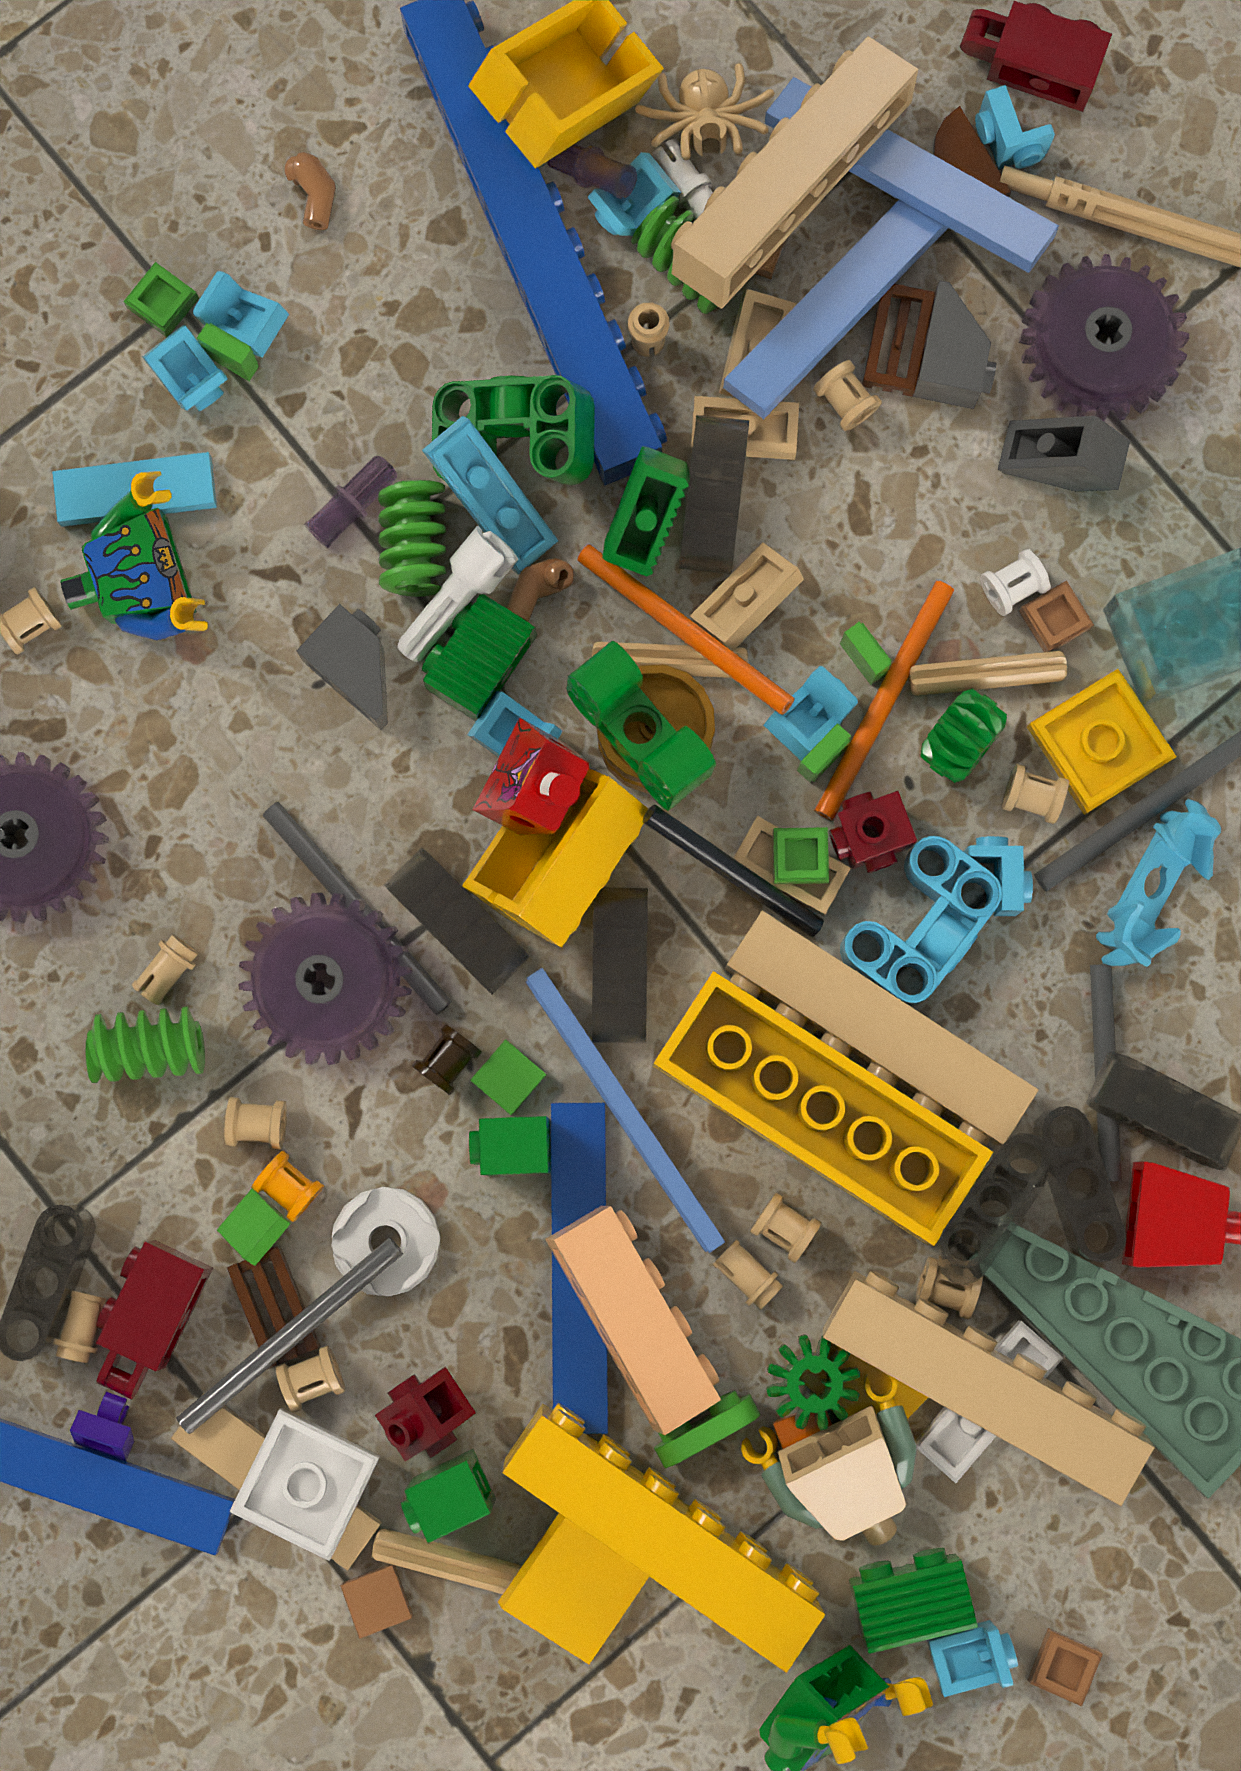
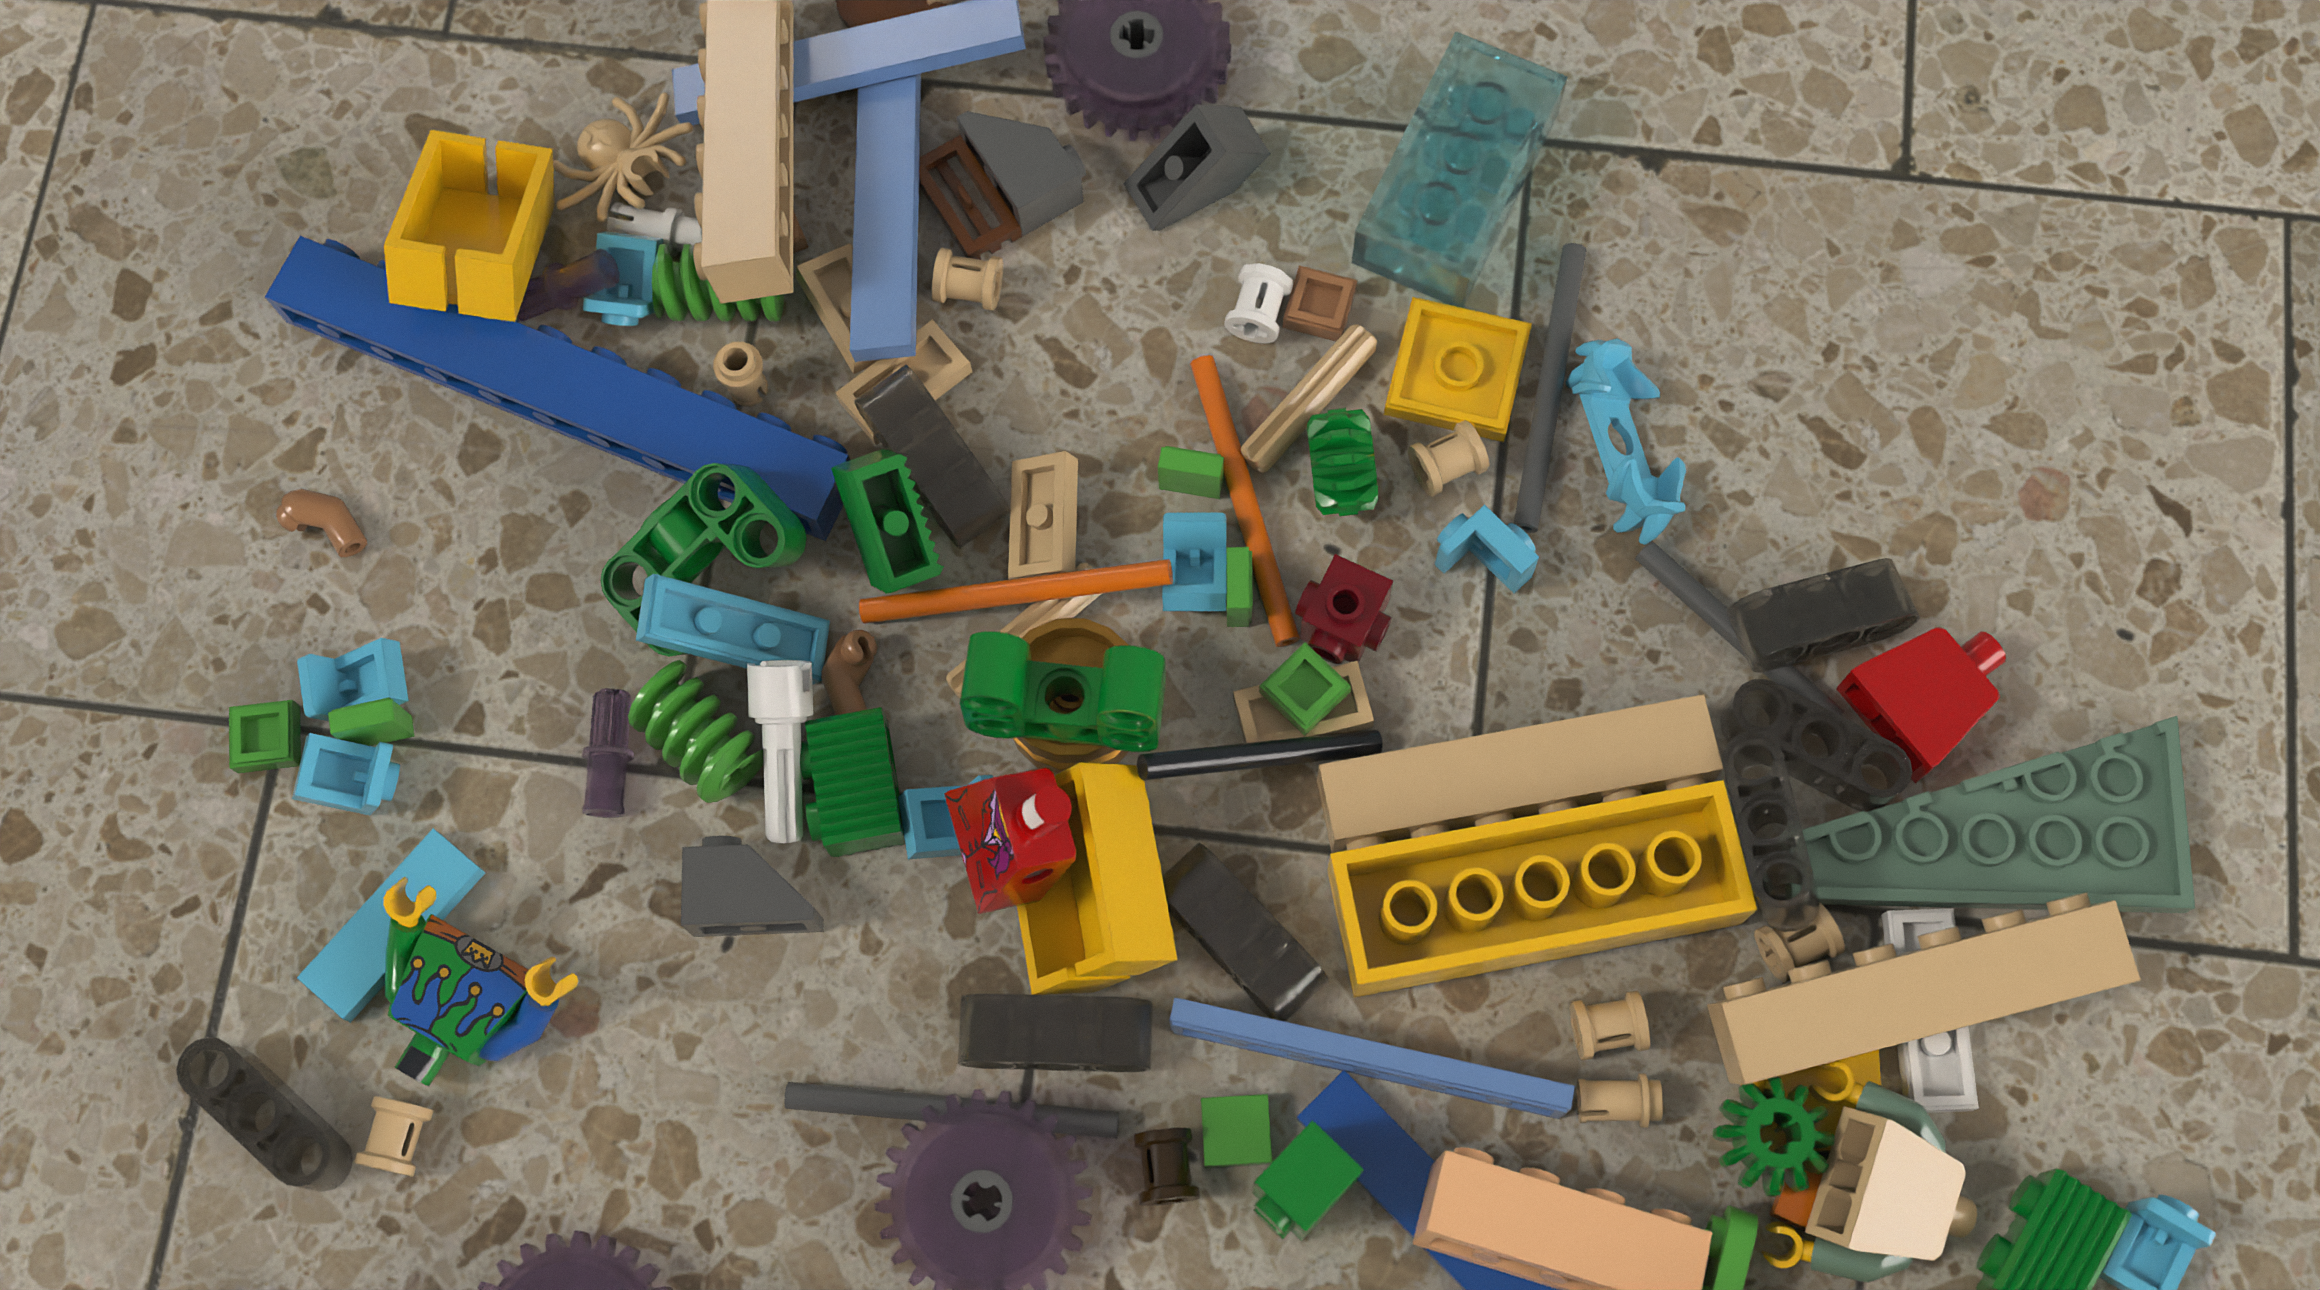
camera: 40 degrees left, 10 degrees down
(942, 934) = (1491, 642): medium azure beam -> none
(1065, 1667) = (2232, 1179): medium nougat tile -> none

